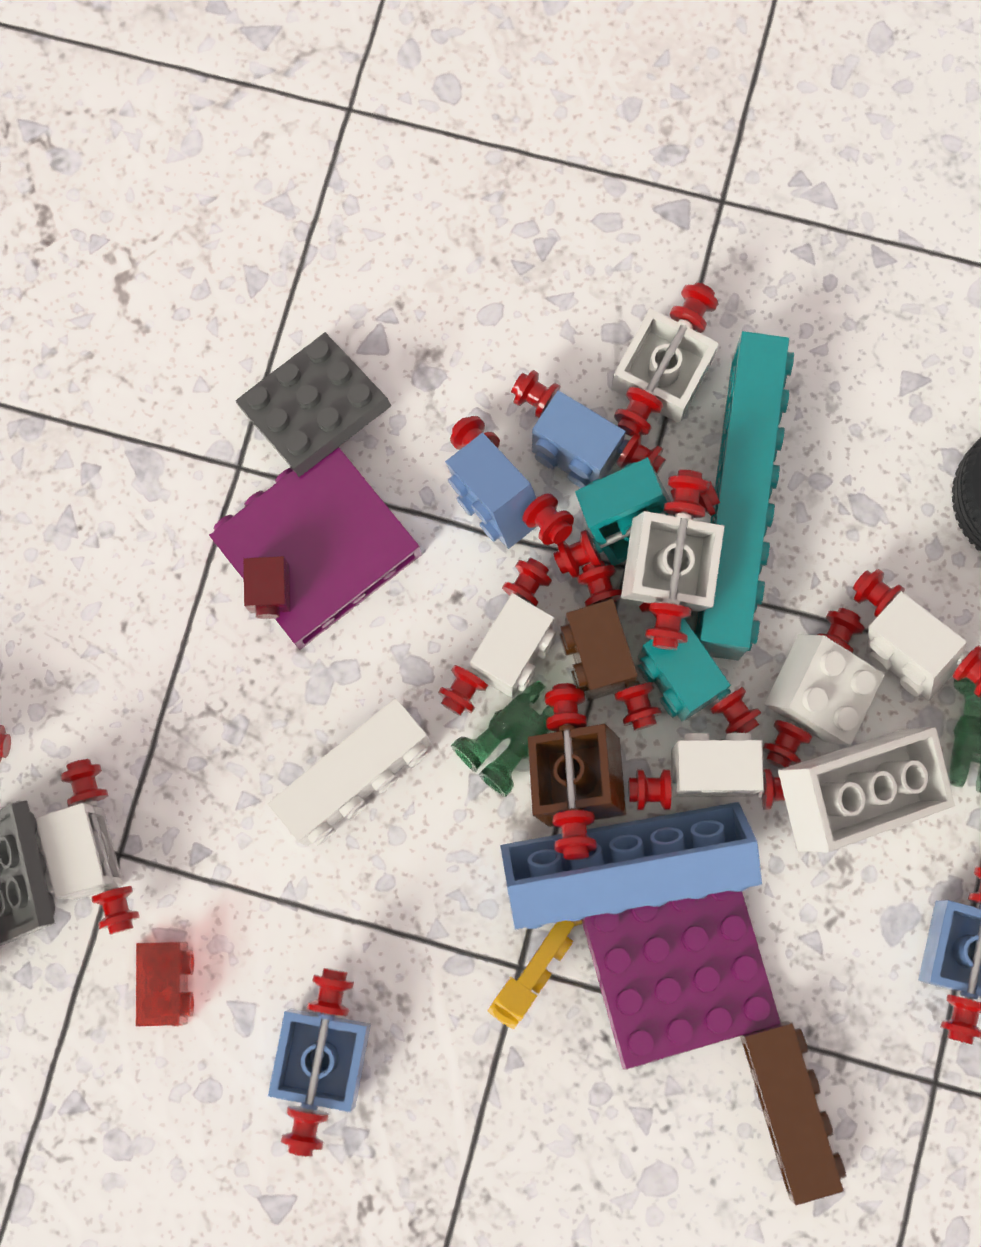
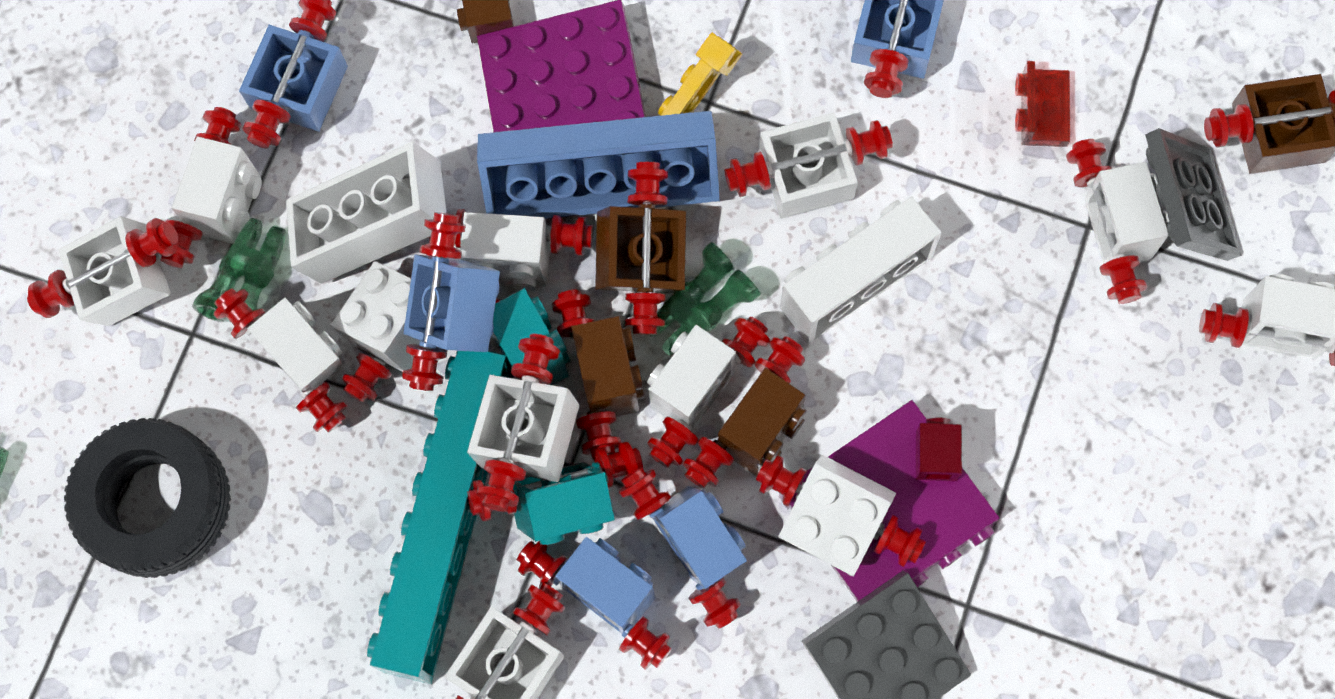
camera: 175 degrees left, 5 degrees down
(361, 513) = (838, 514): none -> white brick
(408, 888) = (808, 163): none -> white brick
(443, 609) = (759, 421): none -> reddish brown brick
(766, 679) = (447, 303): none -> medium blue brick

